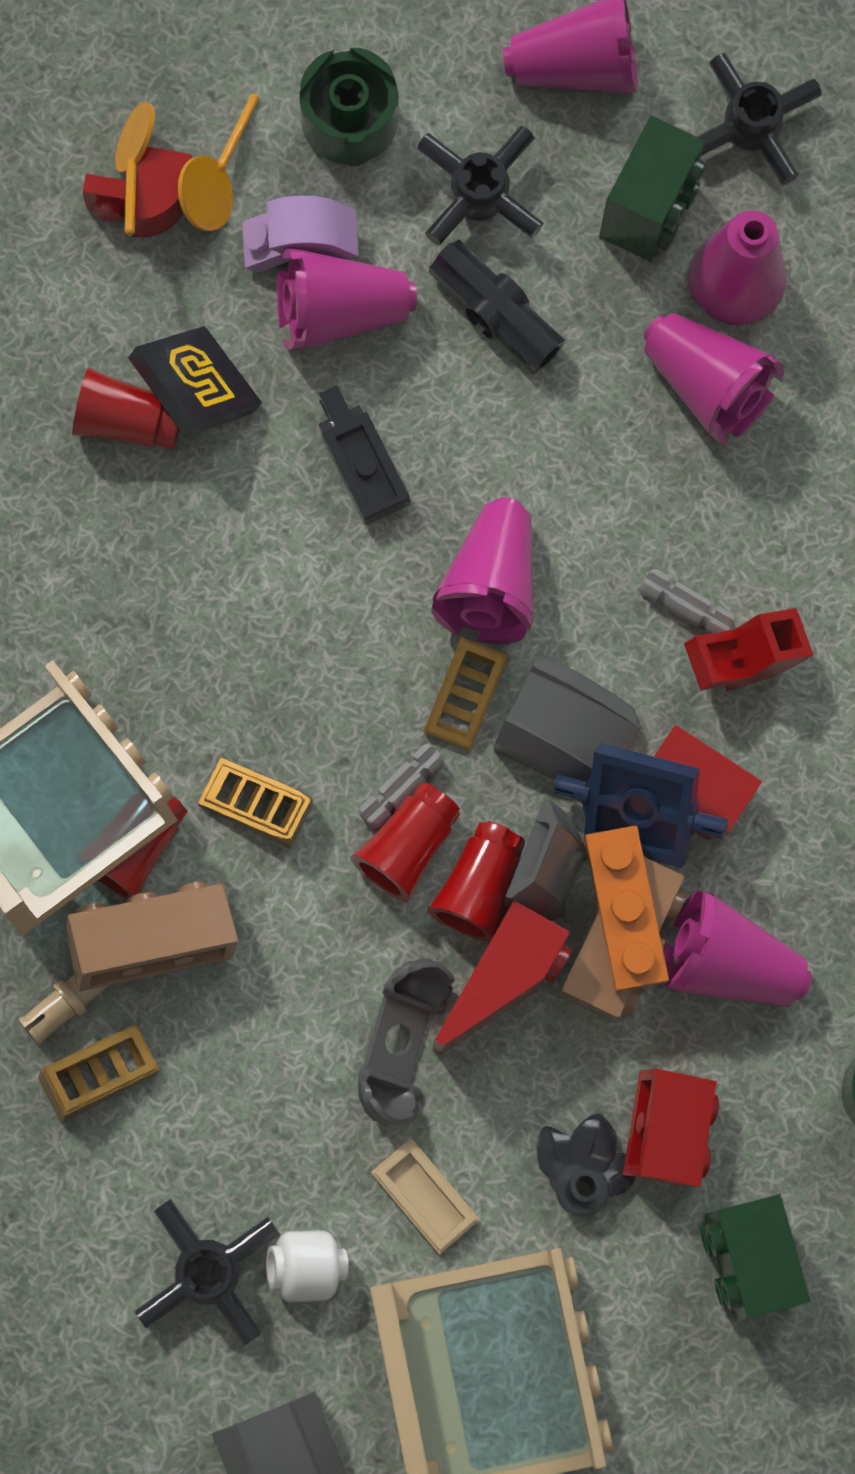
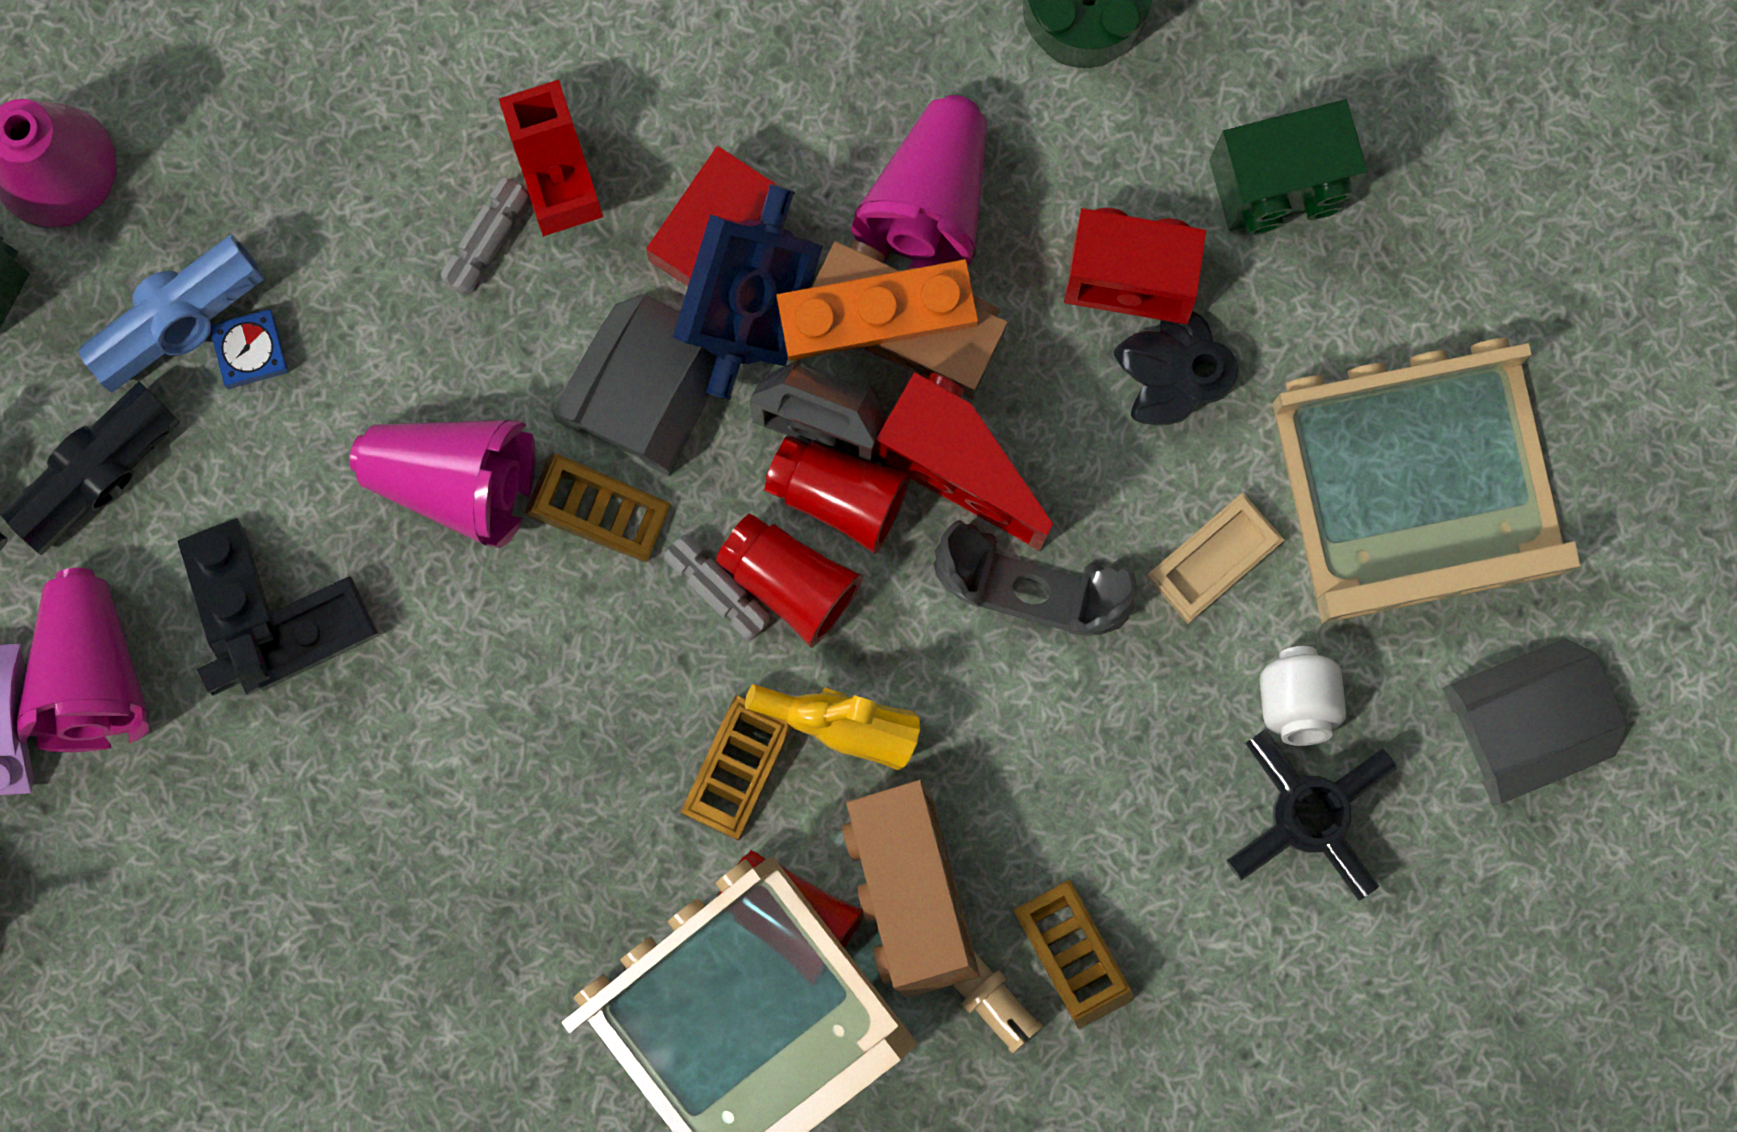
camera: 90 degrees left, 5 degrees up
(122, 413) = (230, 939): red plant -> none
(194, 380) = (189, 851): black tile -> none
(287, 881) = (844, 723): none -> yellow piece
(392, 409) = (229, 597): none -> black hinge
(593, 424) = (248, 349): none -> tile
(619, 363) = (171, 313): none -> medium blue piece
(712, 373) = (186, 197): dark pink cone -> none

